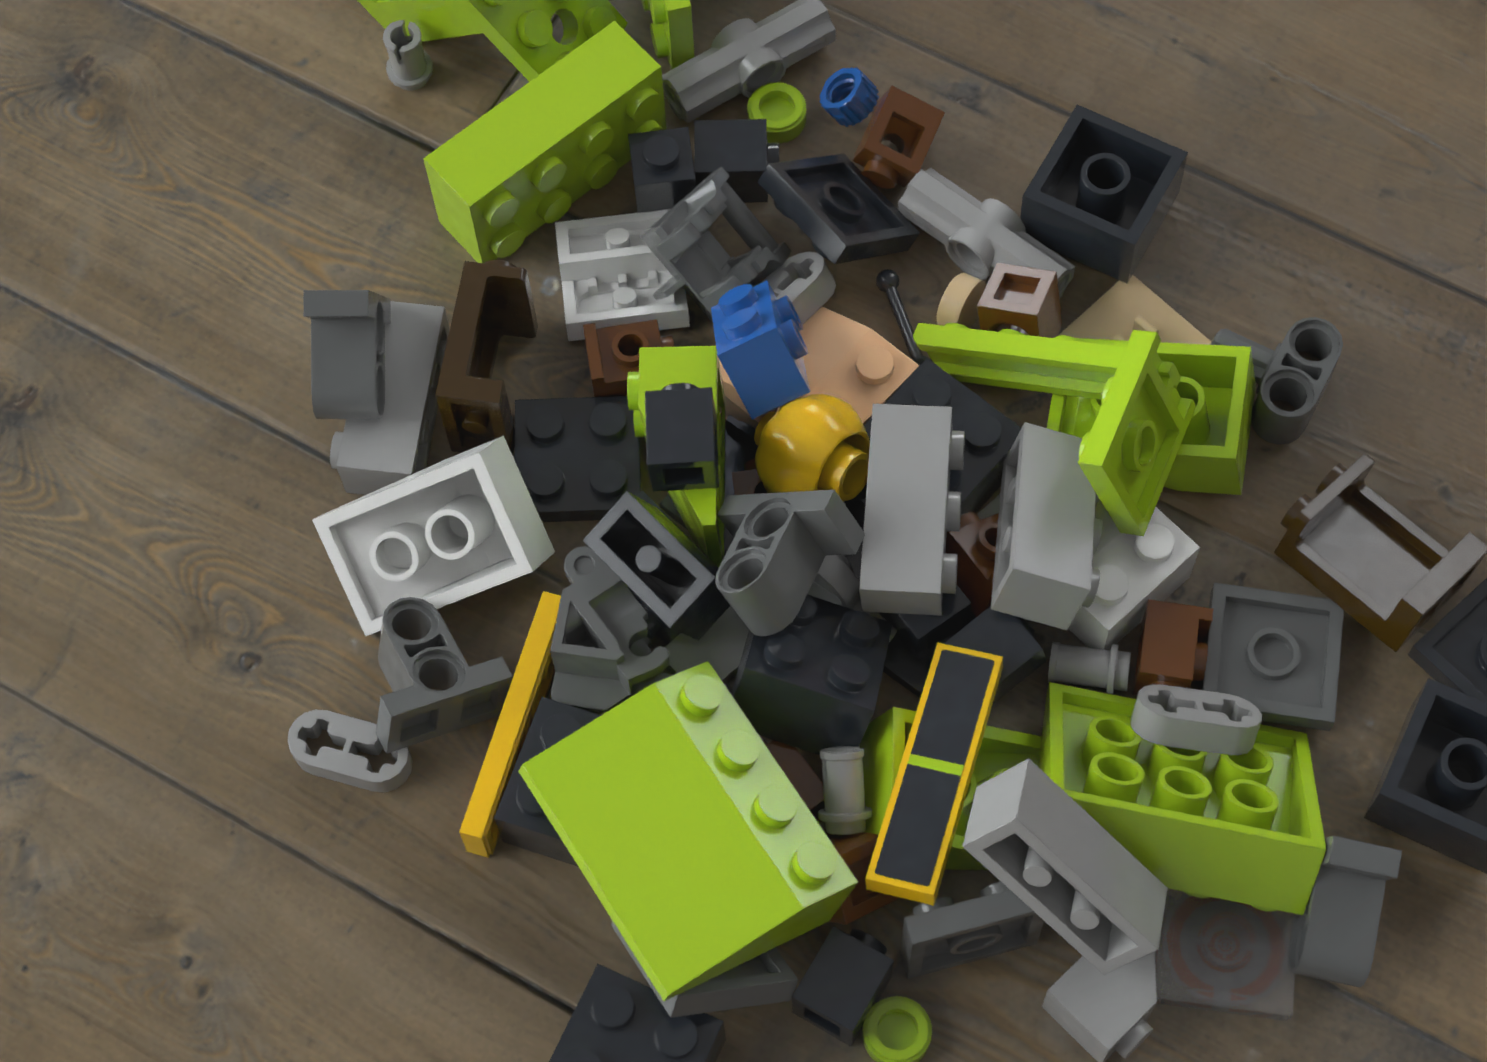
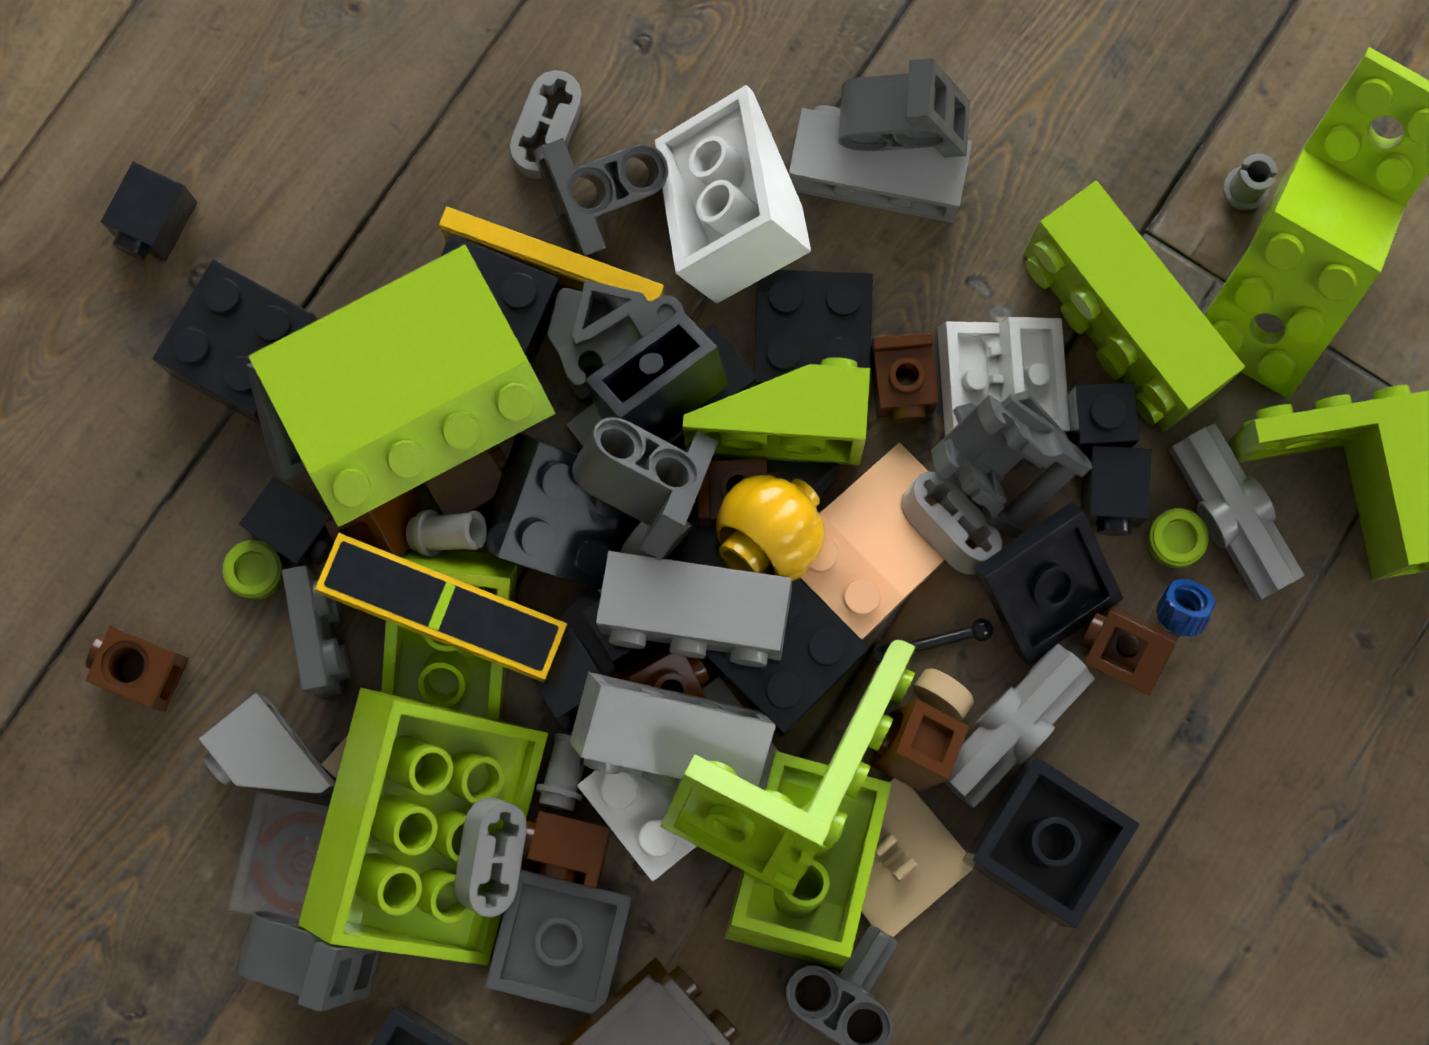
camera: 90 degrees right, 15 degrees up
(490, 303) = (908, 231): dark brown panel -> none
(681, 438) = (760, 395): black brick -> none
(760, 347) = (872, 484): blue brick -> none
(1066, 867) = (328, 705): light grey brick -> none

